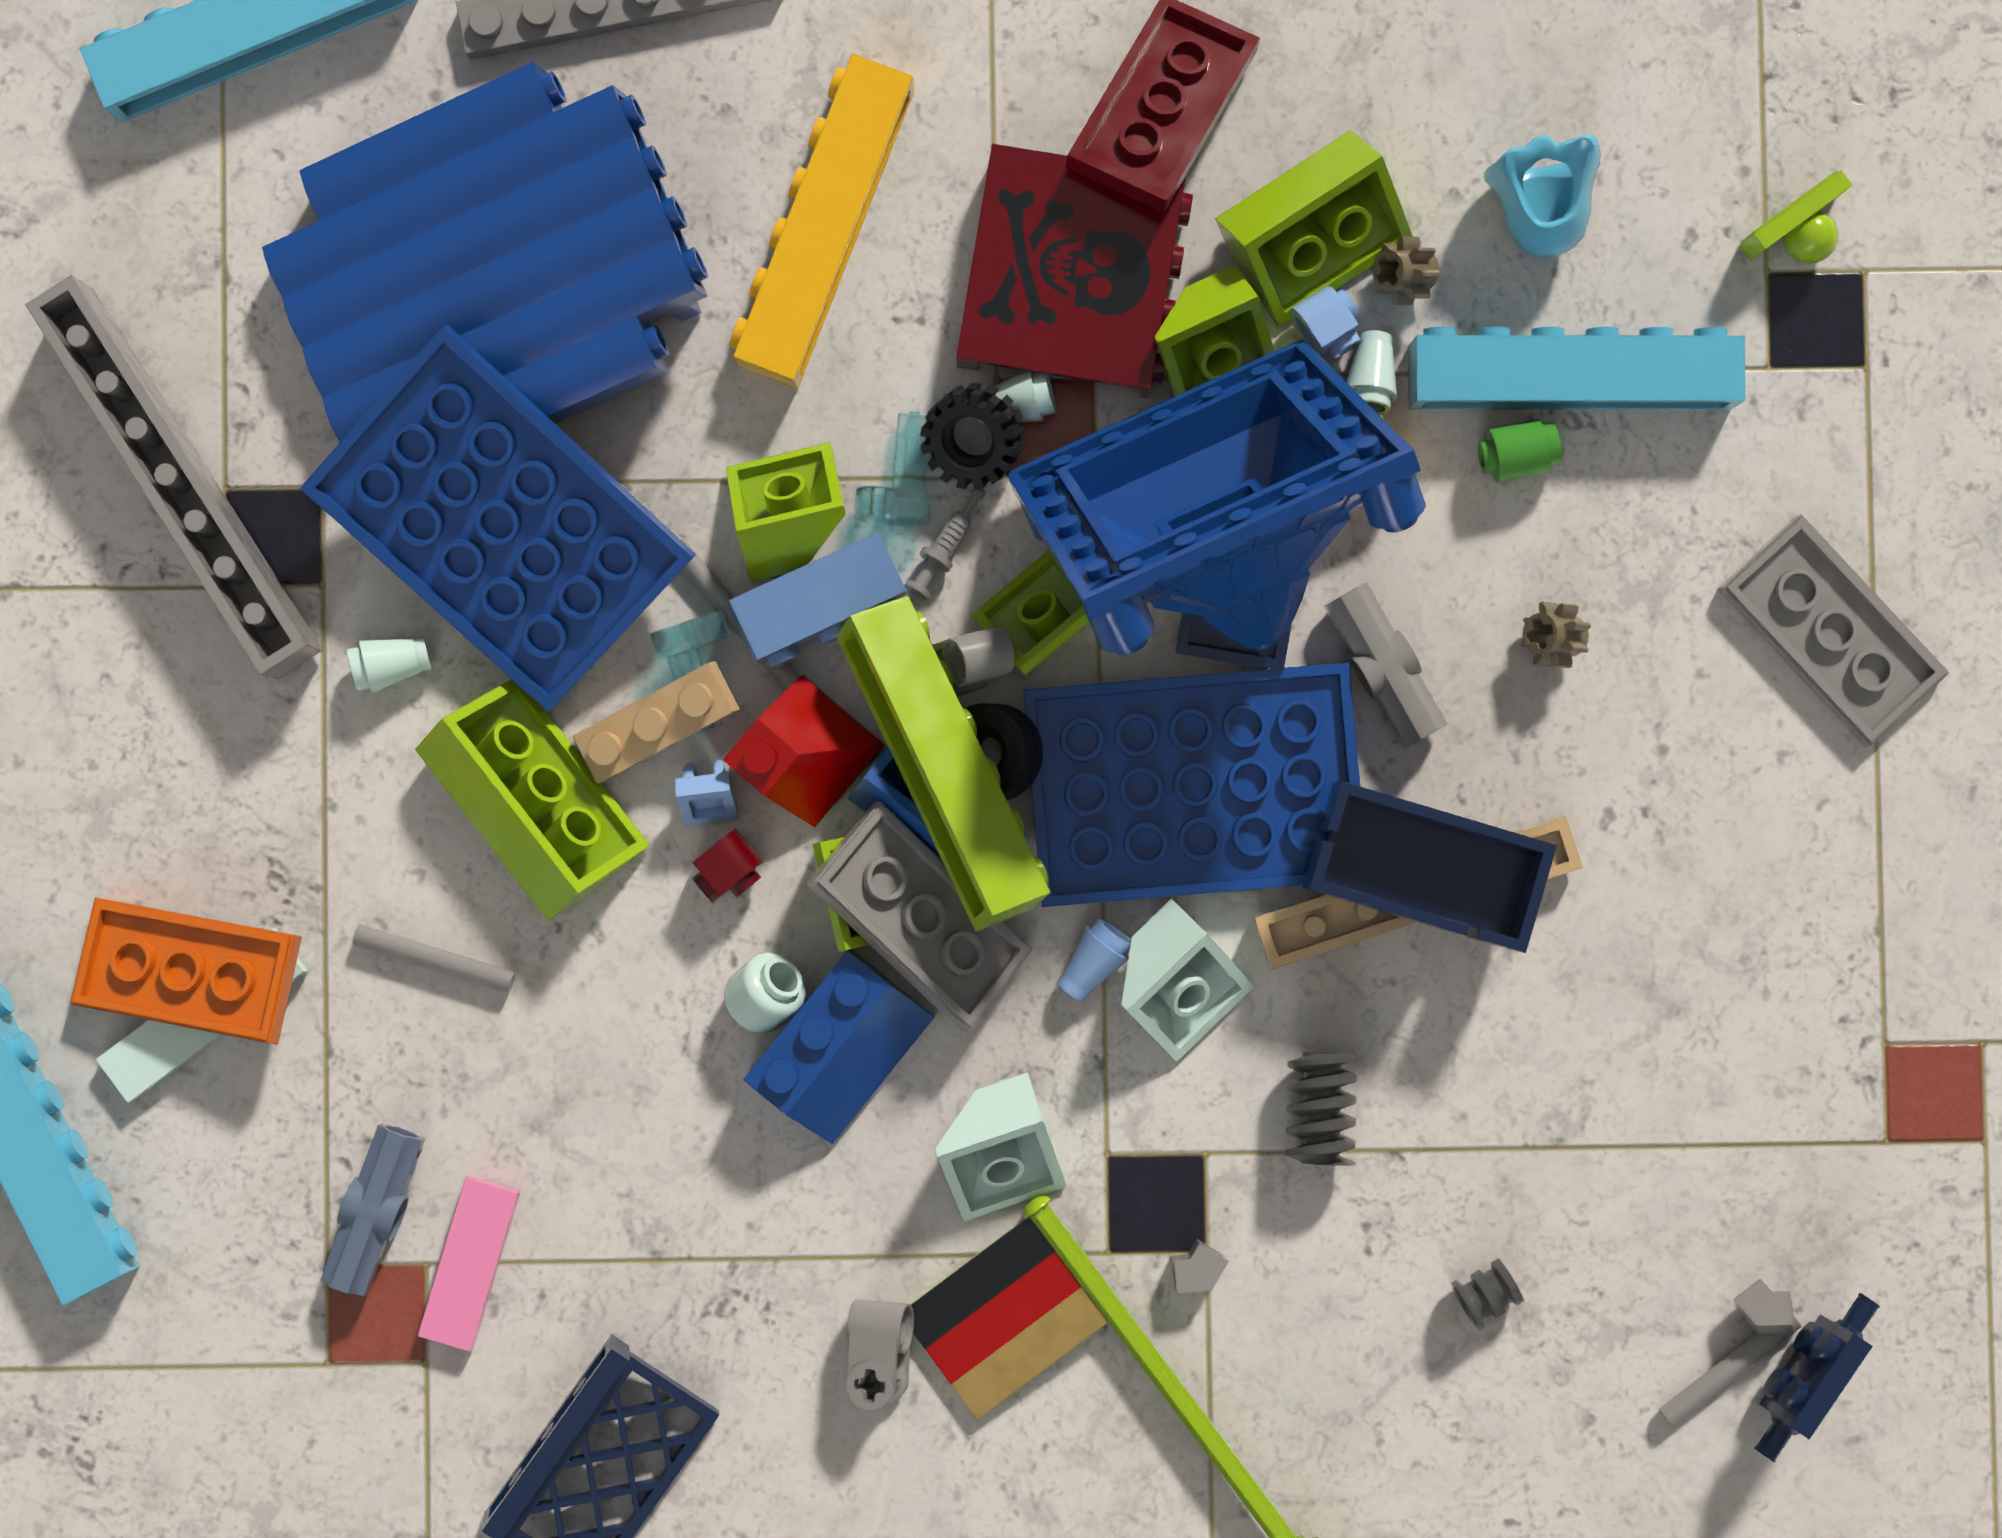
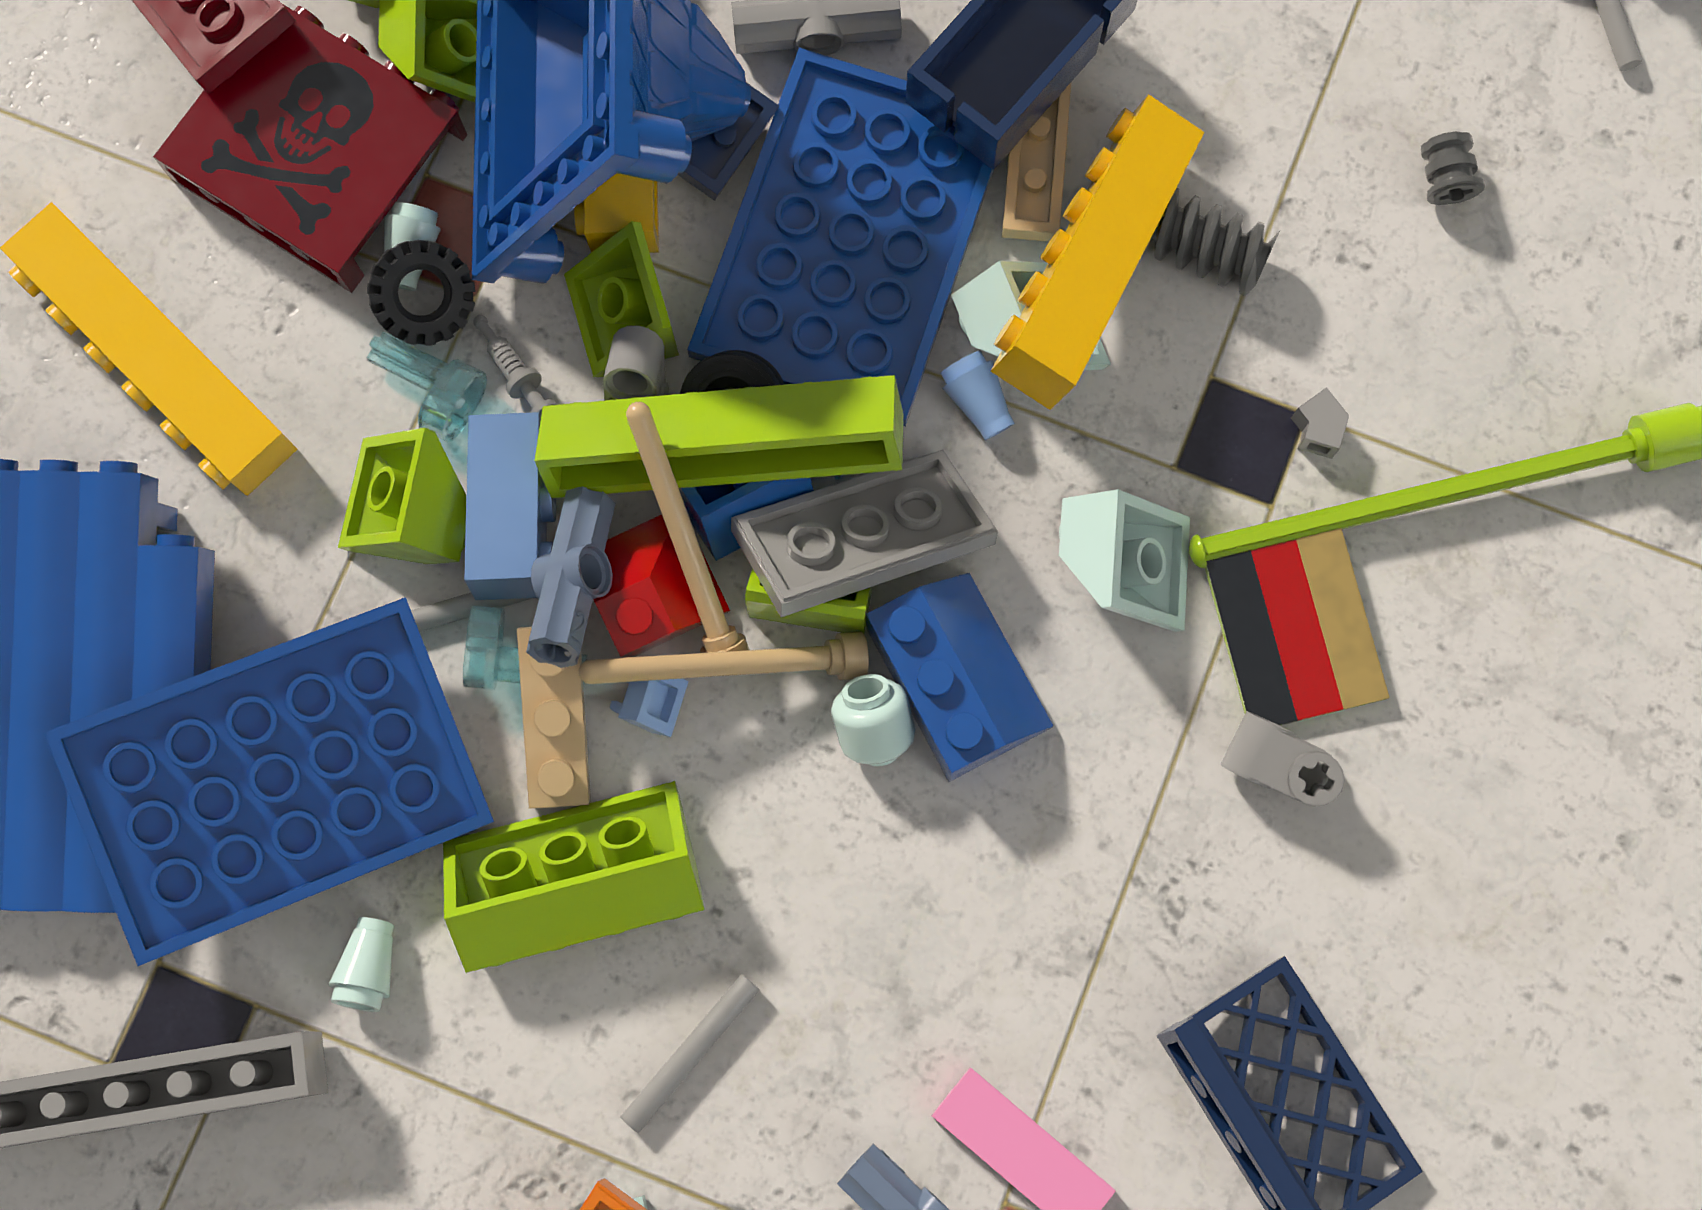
camera: 65 degrees left, 10 degrees down
(727, 867) = (731, 709): dark red plate -> none
(769, 689) = (571, 577): none -> sand blue piece
(777, 837) = (719, 635): none -> tan piece
(811, 940) = (842, 656): none -> tan piece
(1256, 1014) = (1097, 253): none -> yellow brick

